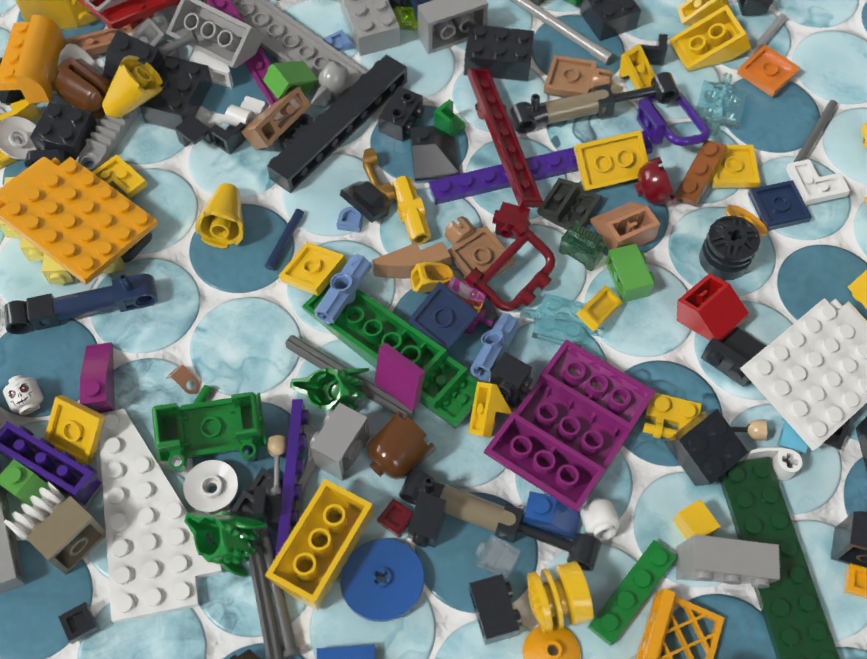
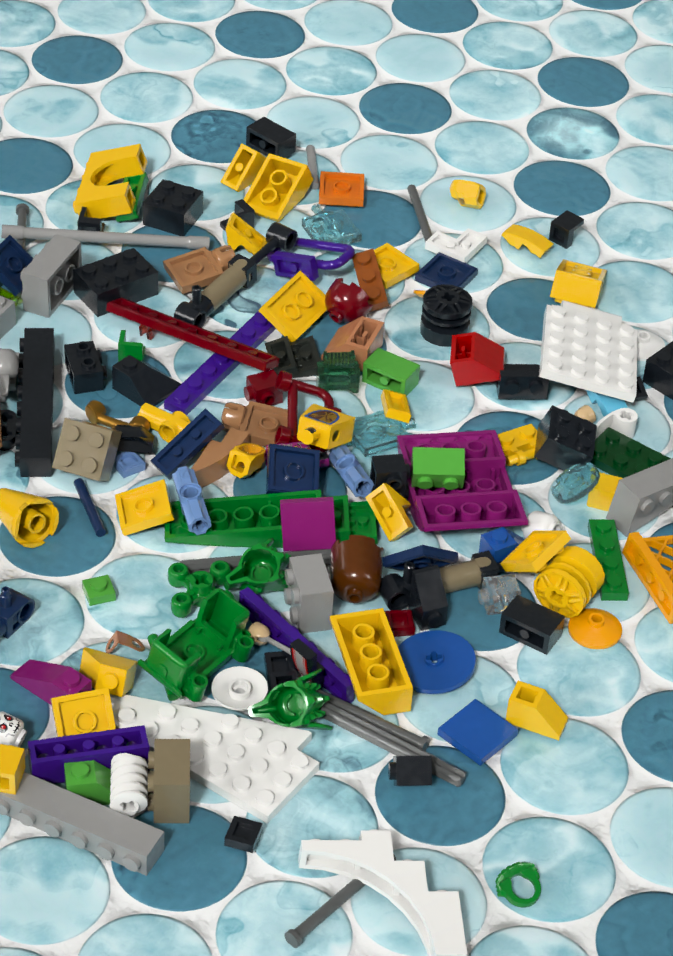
camera: 45 degrees left, 20 degrees down
(136, 399) = (108, 671): none -> yellow slope
(216, 317) = (98, 590): none -> bright green plate
(269, 372) = (198, 585): none -> green gear
(316, 190) = (86, 449): none -> dark tan brick
(396, 234) = (187, 443): none -> dark blue plate
(452, 479) = (422, 557): none -> dark blue tile
(505, 293) = (325, 427): none -> yellow torso
(552, 547) = (535, 551): none -> yellow plate
(557, 399) = (437, 467): none -> bright green brick
(674, 496) = (575, 483): none -> clear light blue tile

